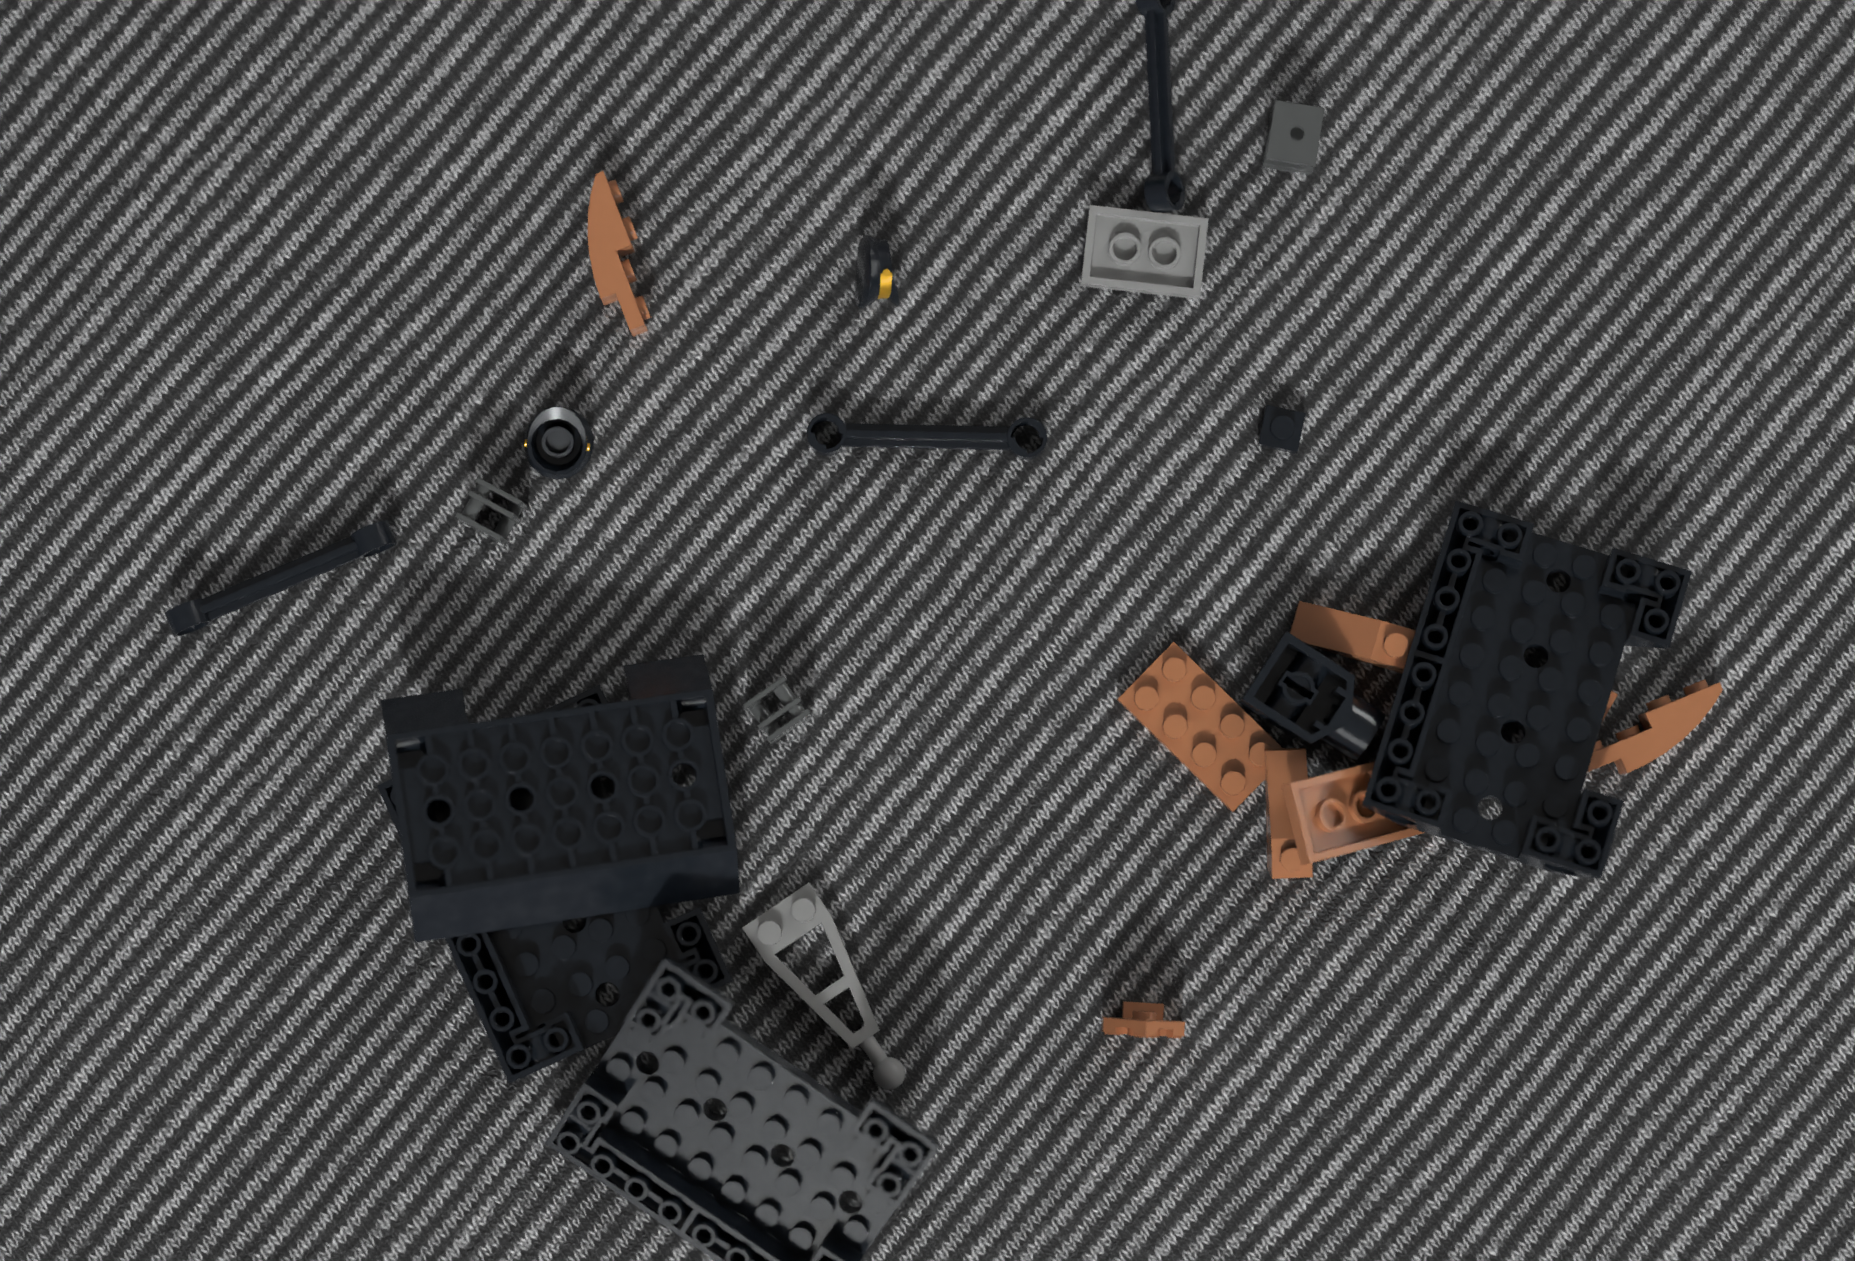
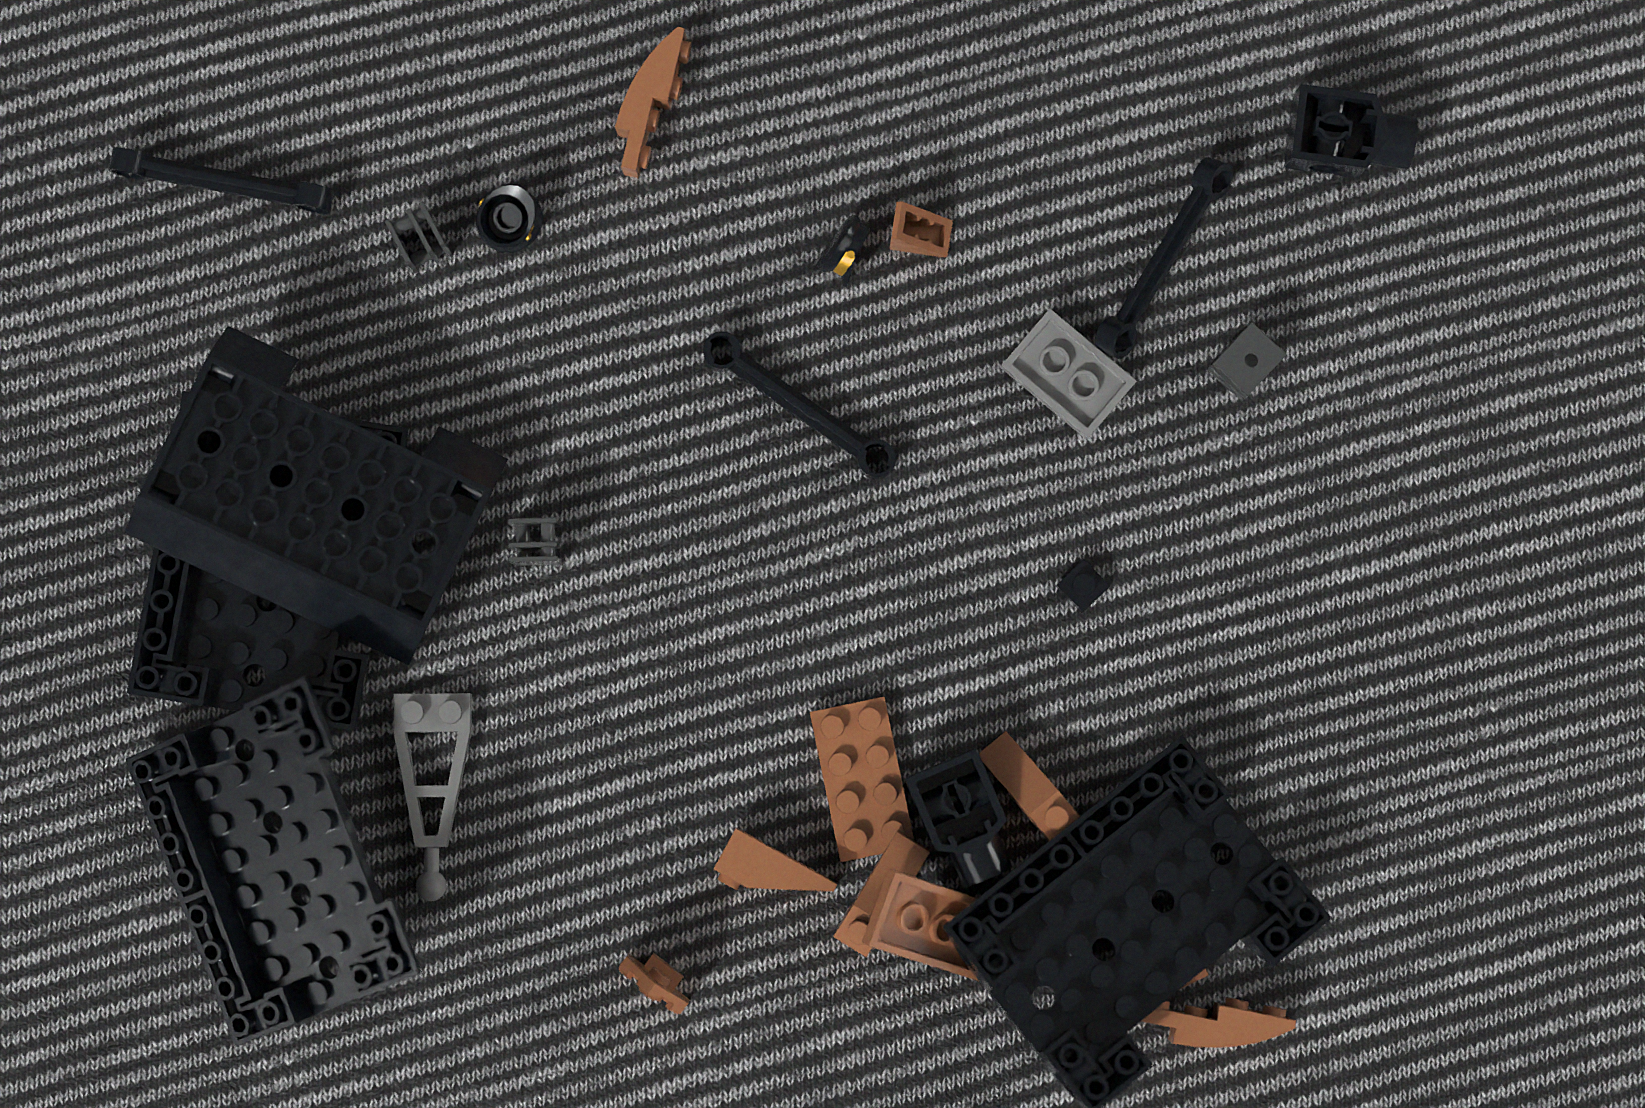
camera: 30 degrees right, 0 degrees up
(929, 213) = (920, 231): none -> nougat slope
(1166, 861) = (763, 867): none -> nougat slope

